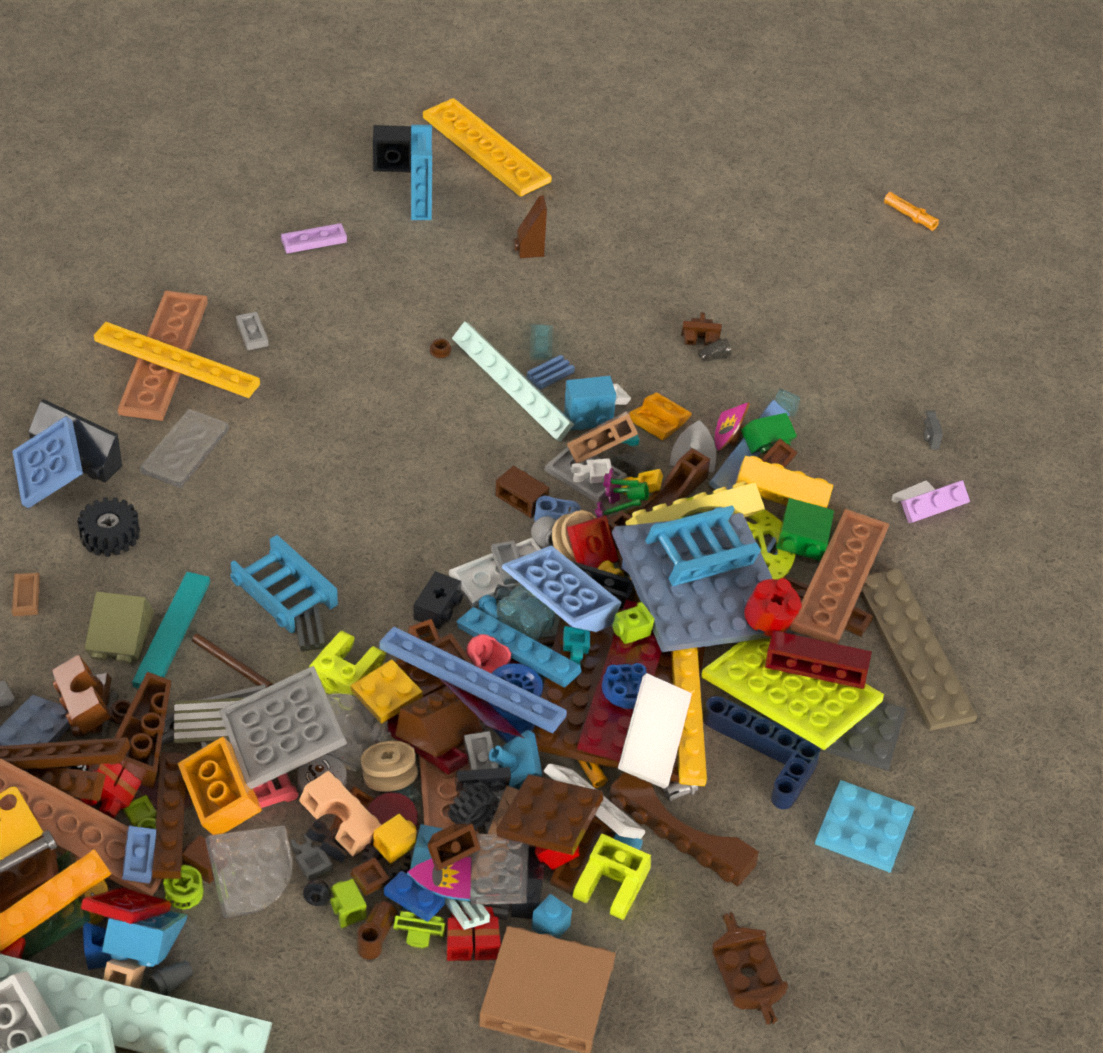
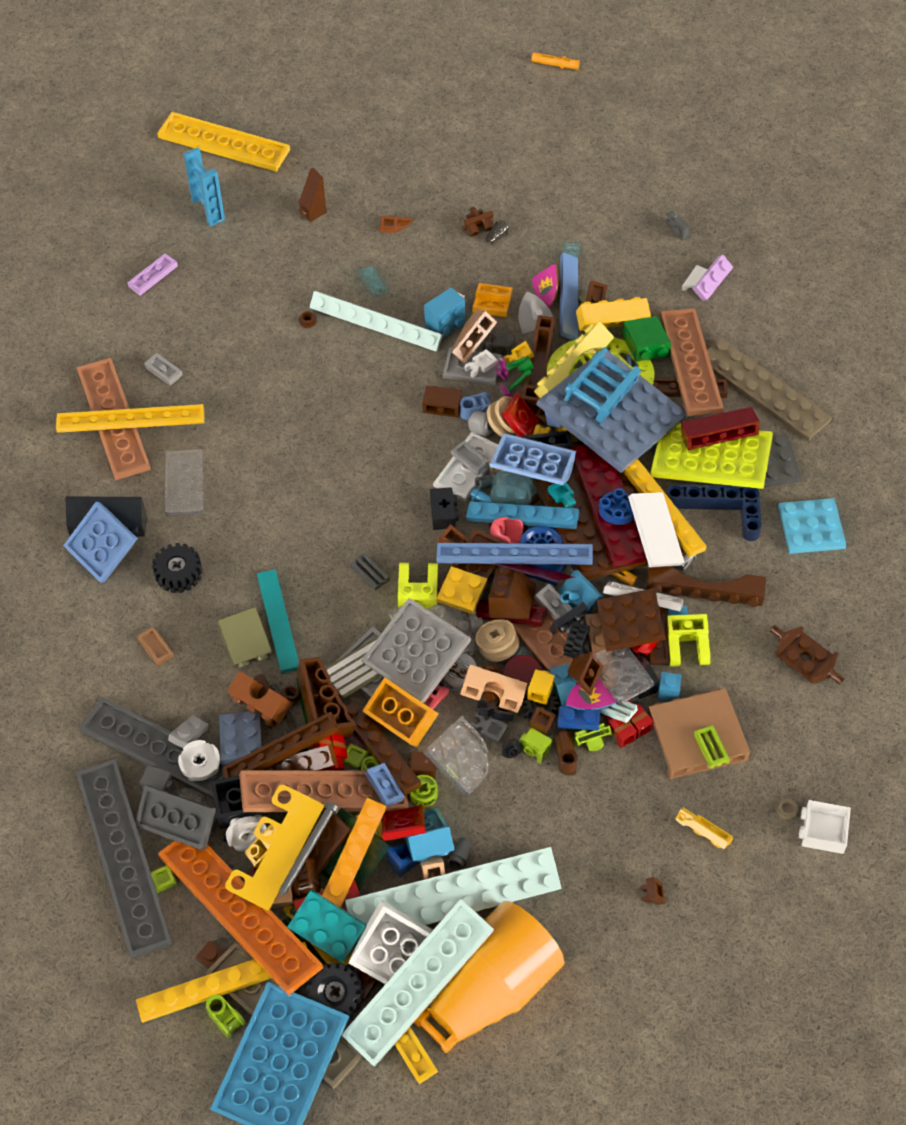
camera: 25 degrees left, 10 degrees up
(230, 661) = (335, 621): reddish brown bar -> none
(294, 566) = (334, 532): dark azure fence -> none
(391, 148) = (161, 174): black brick -> none
(543, 1030) = (717, 761): none -> lime tile
(548, 370) = (388, 301): medium blue tile -> none
(607, 296) = (393, 224): none -> dark orange tile
(633, 623) = (592, 462): lime brick -> none
(765, 432) = (577, 279): green brick -> none
(772, 606) = (671, 406): red brick -> none

